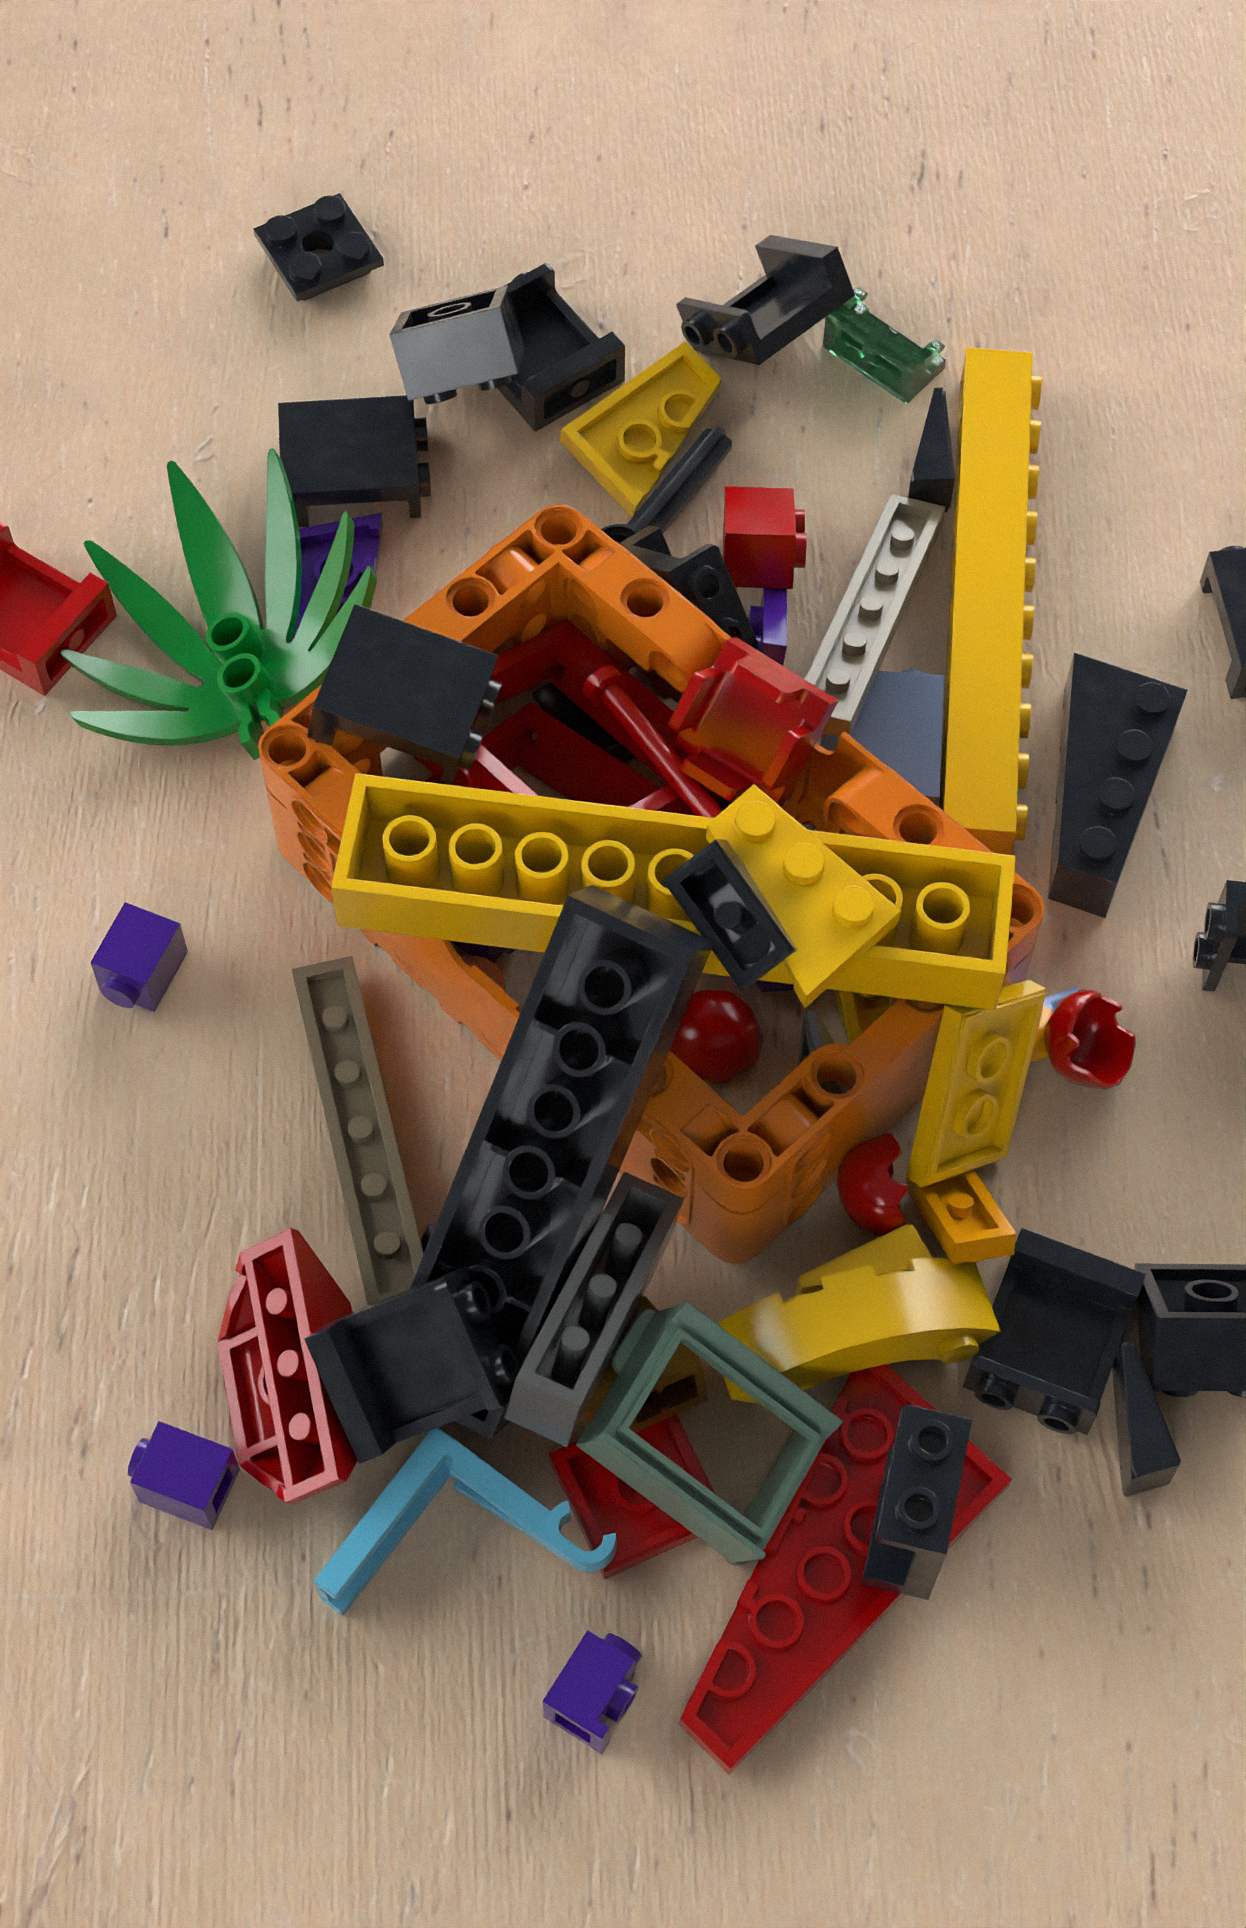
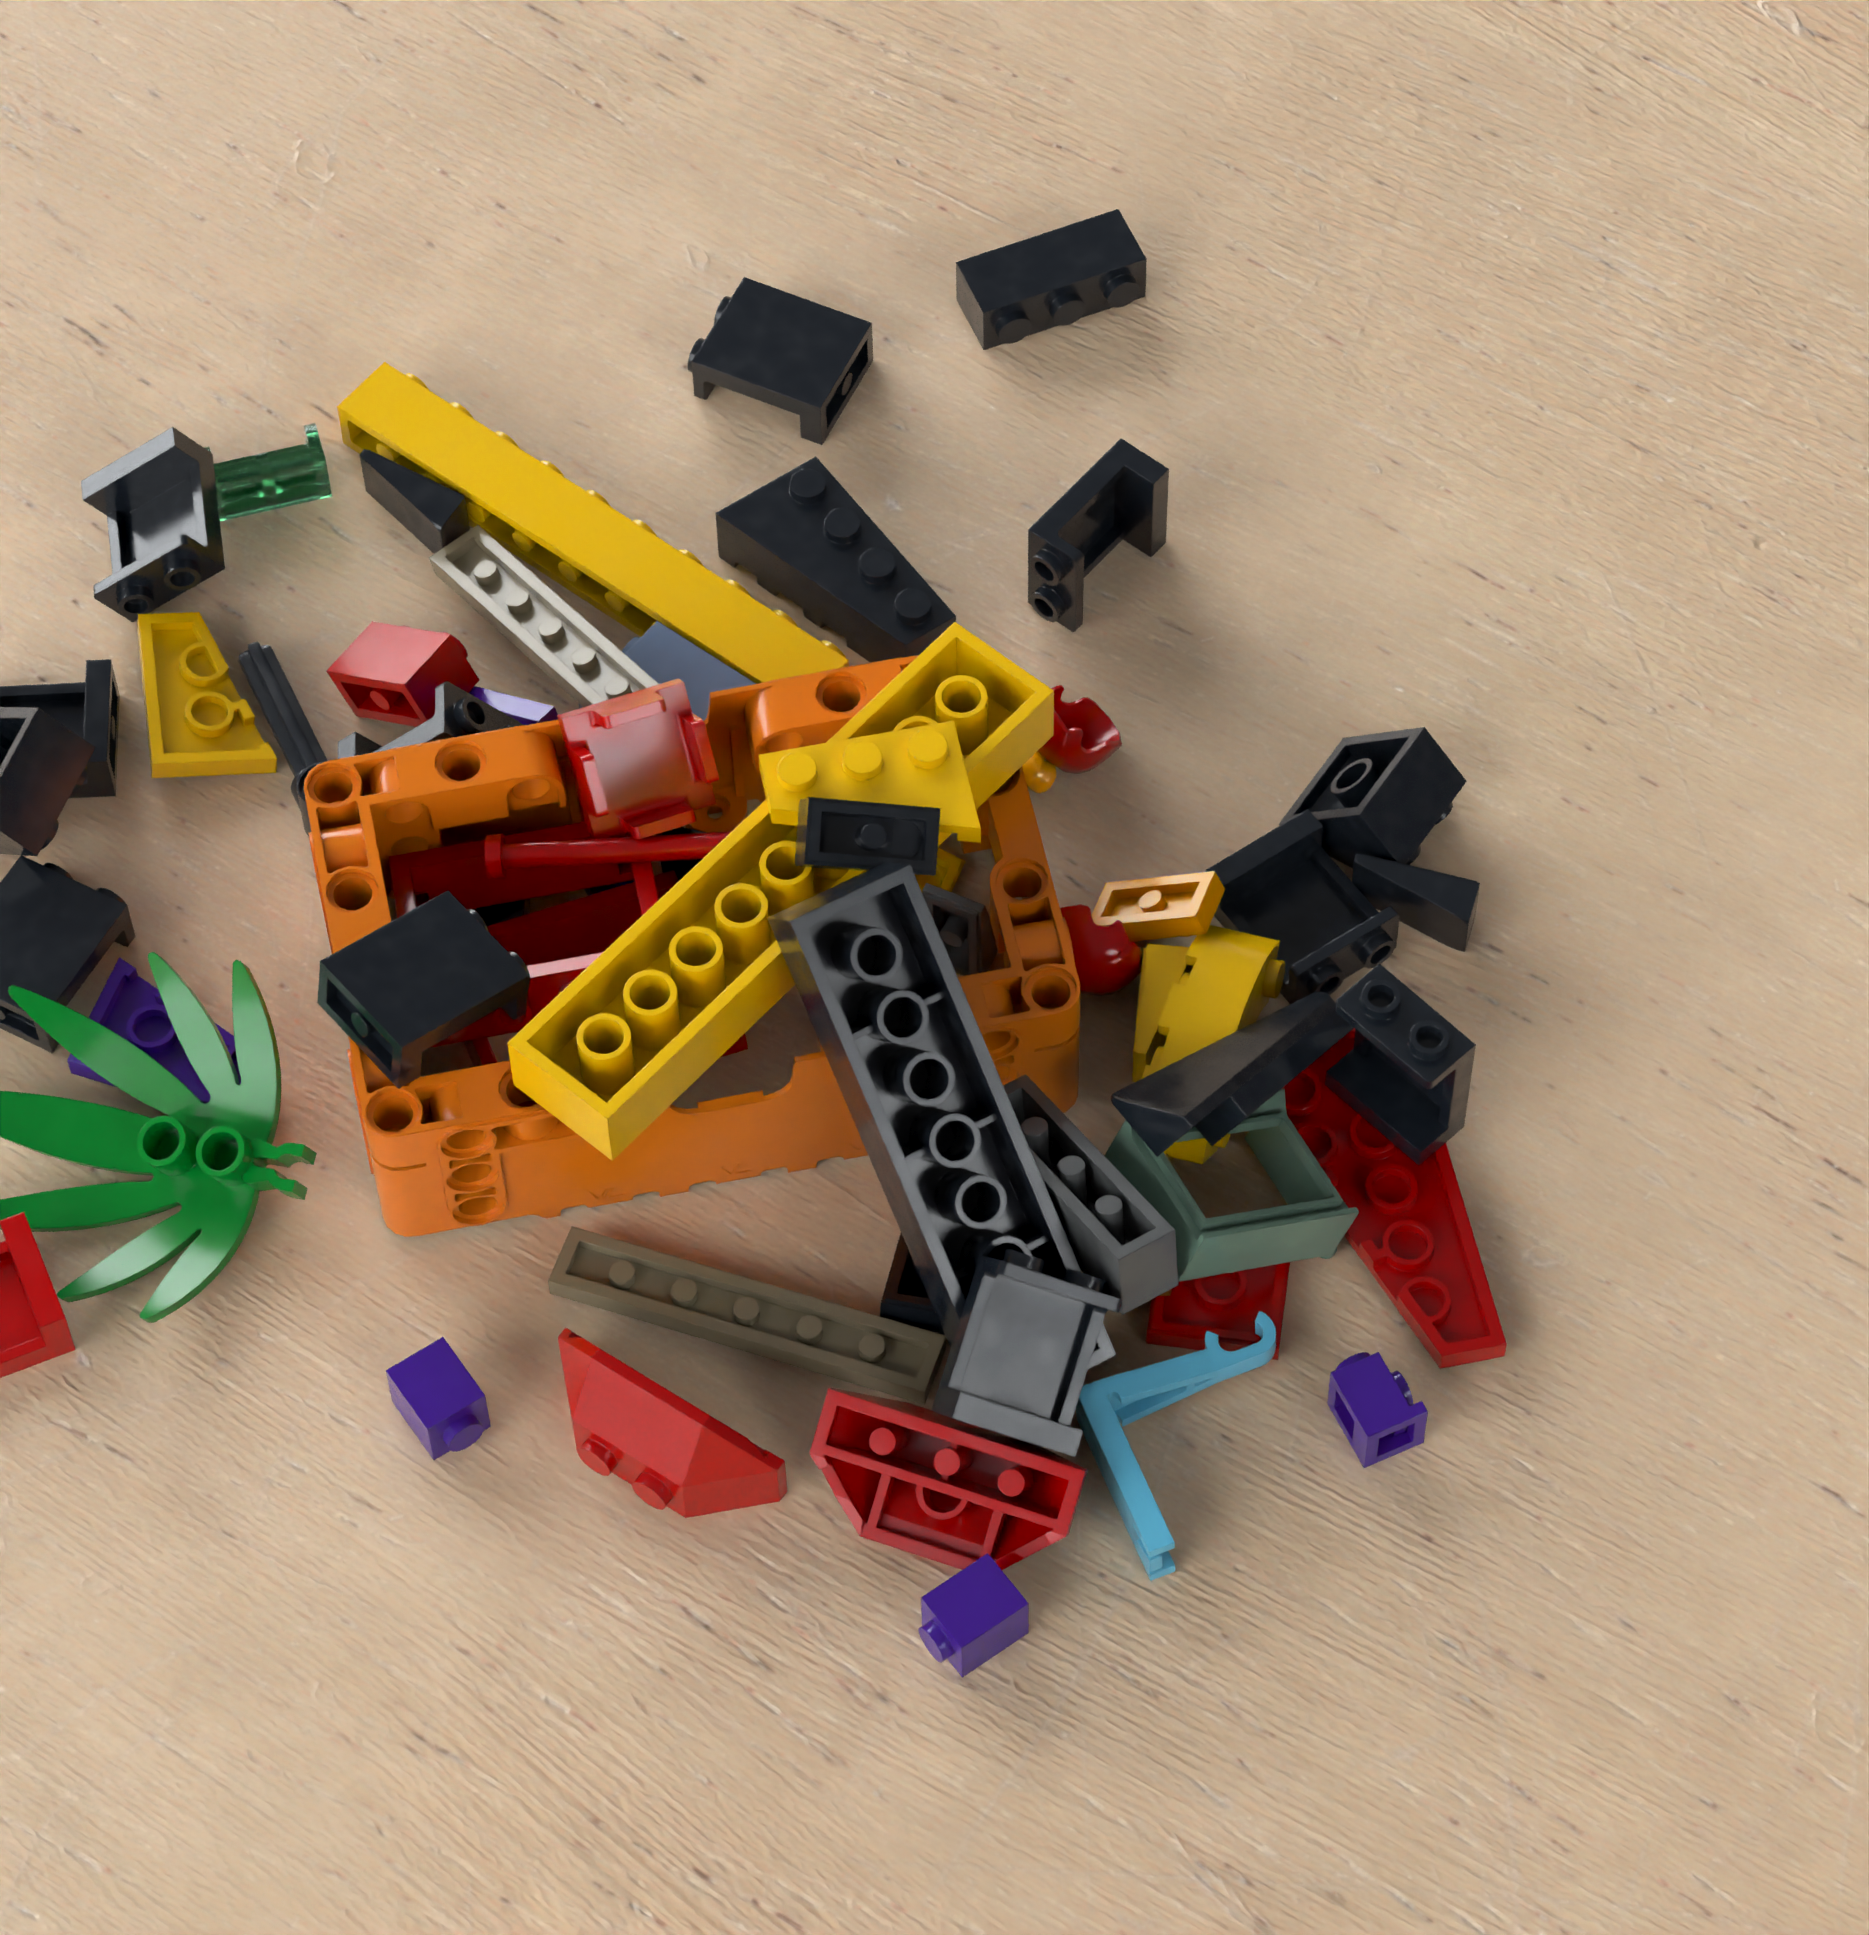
camera: 55 degrees left, 5 degrees down
(201, 1129) = (659, 1440): none -> red wedge
(796, 1366) = (1231, 1076): none -> black wedge
(975, 1084) = (1078, 826): yellow tile -> none

